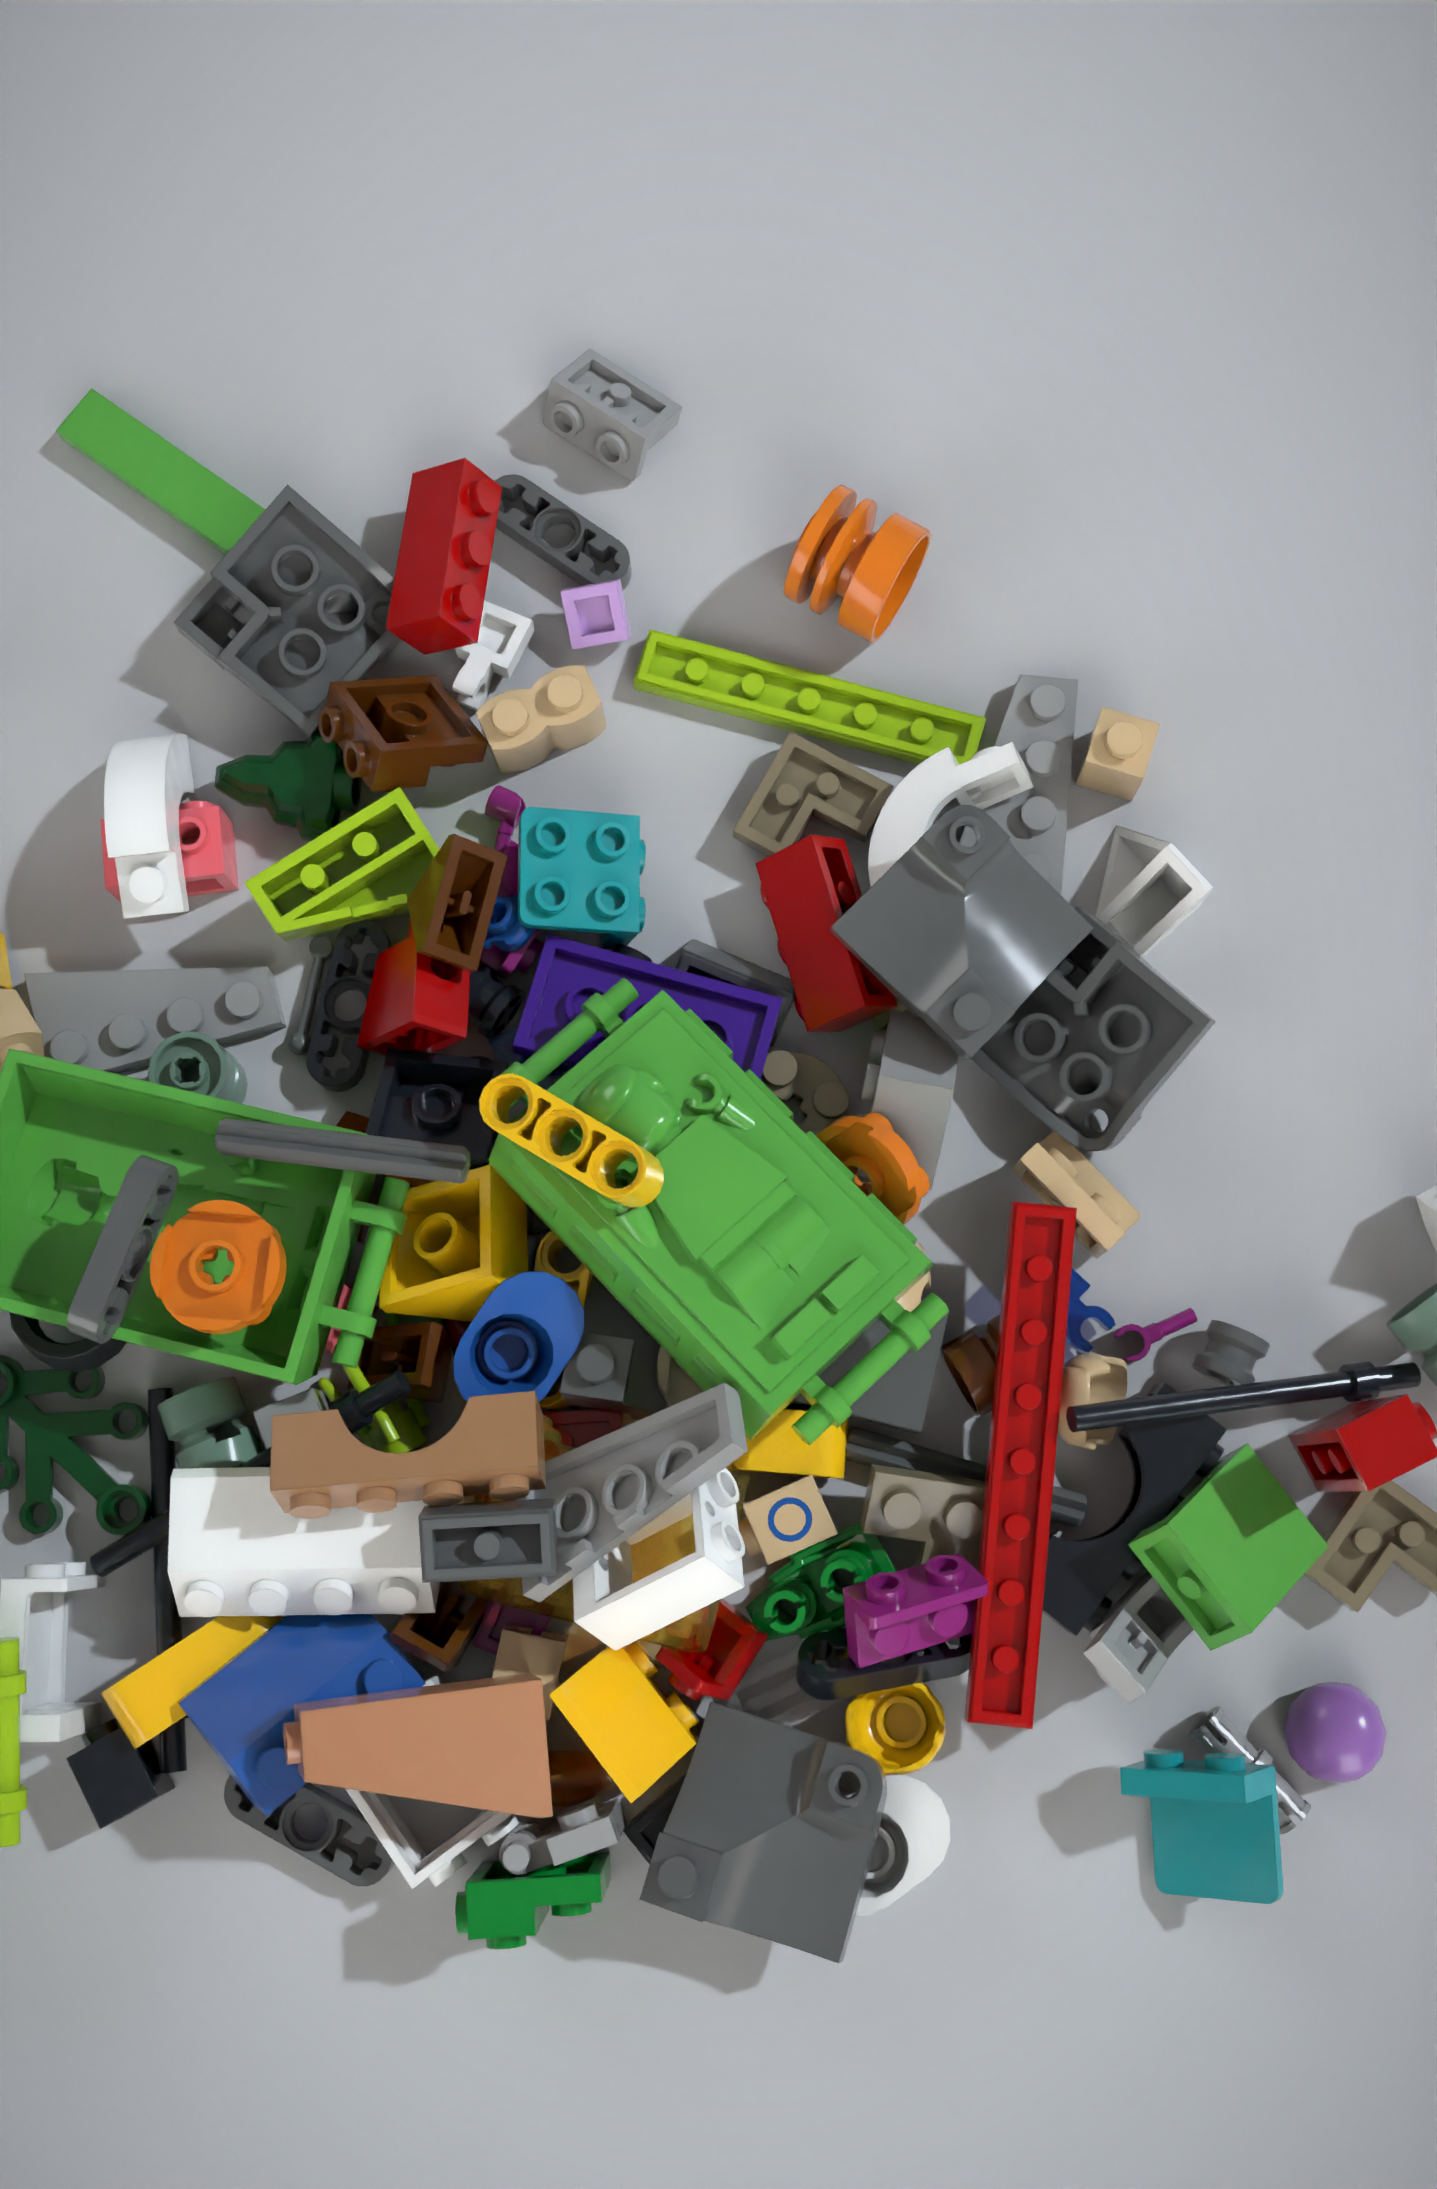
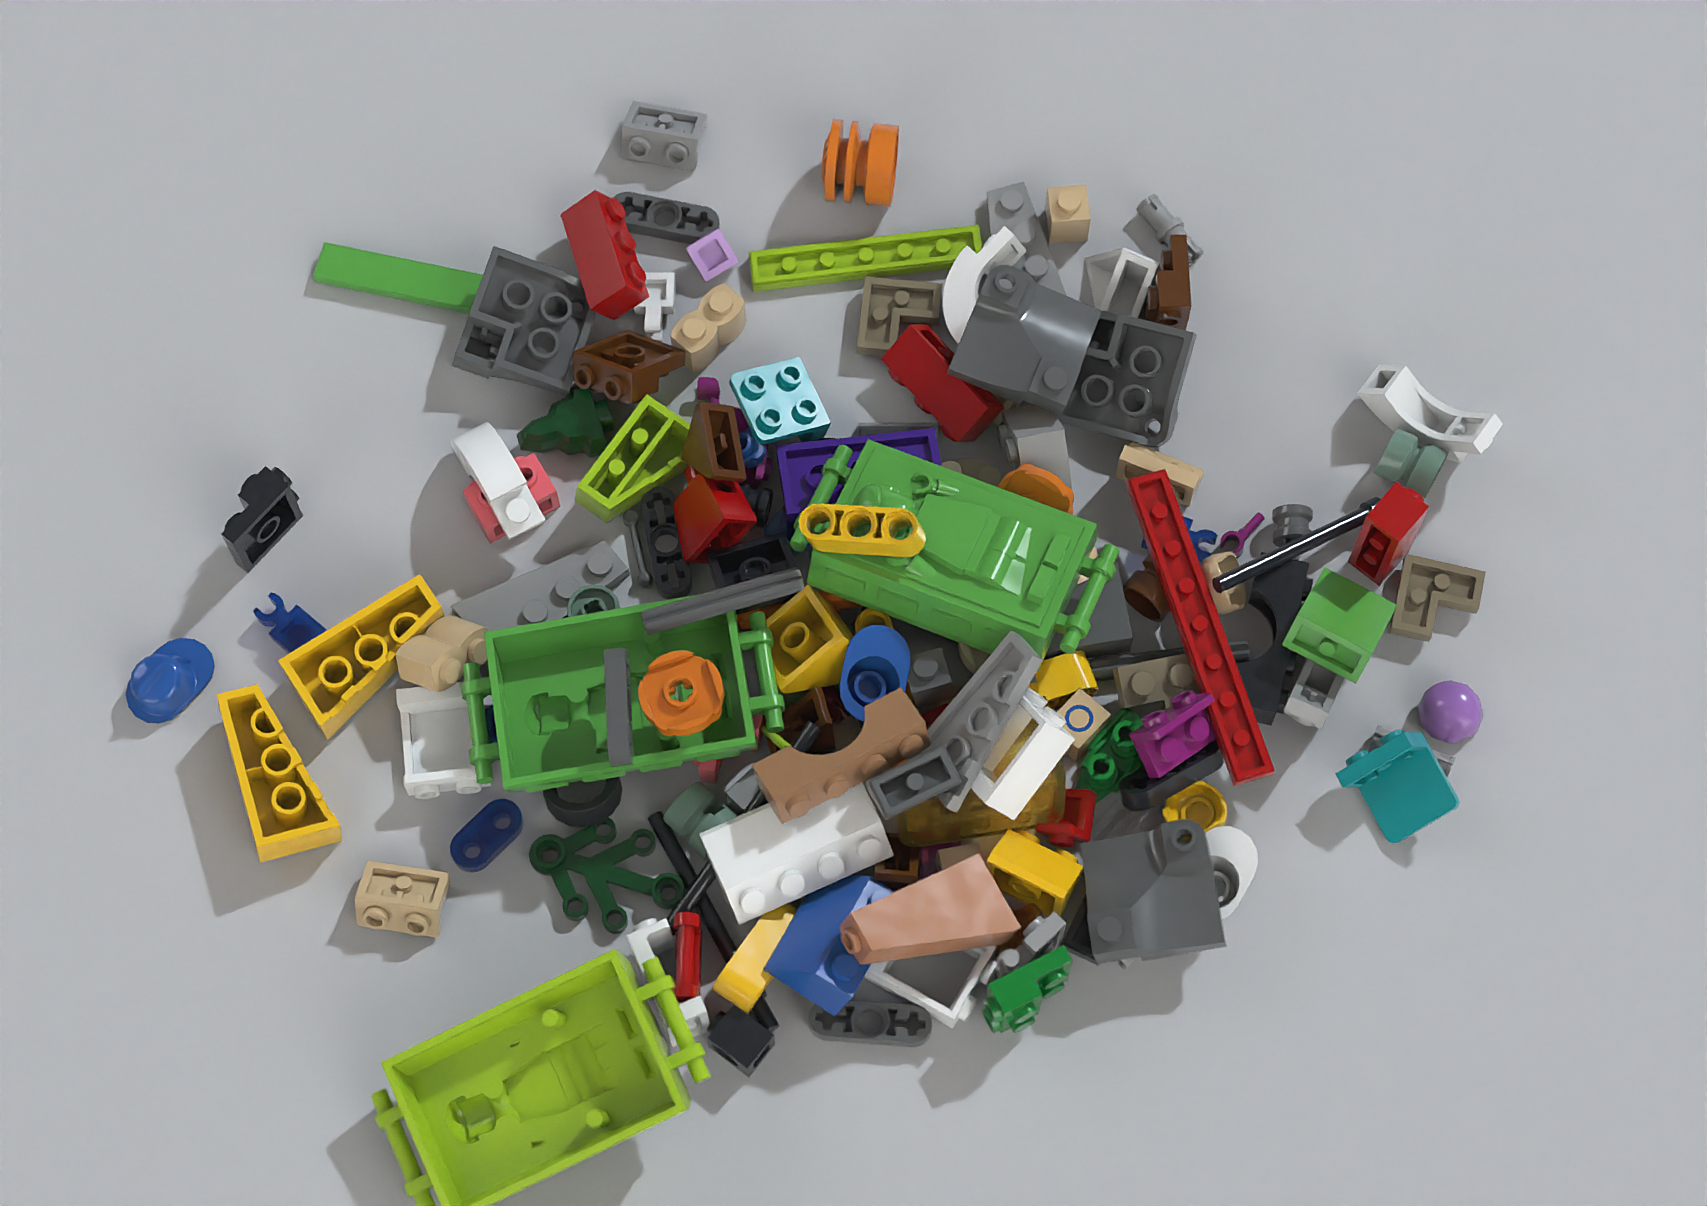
camera: 30 degrees left, 10 degrees down
(92, 1638) = (688, 955): none -> red plate
(1203, 947) = (1171, 295): none -> reddish brown plate
(1254, 836) = (1166, 225): none -> light grey pin

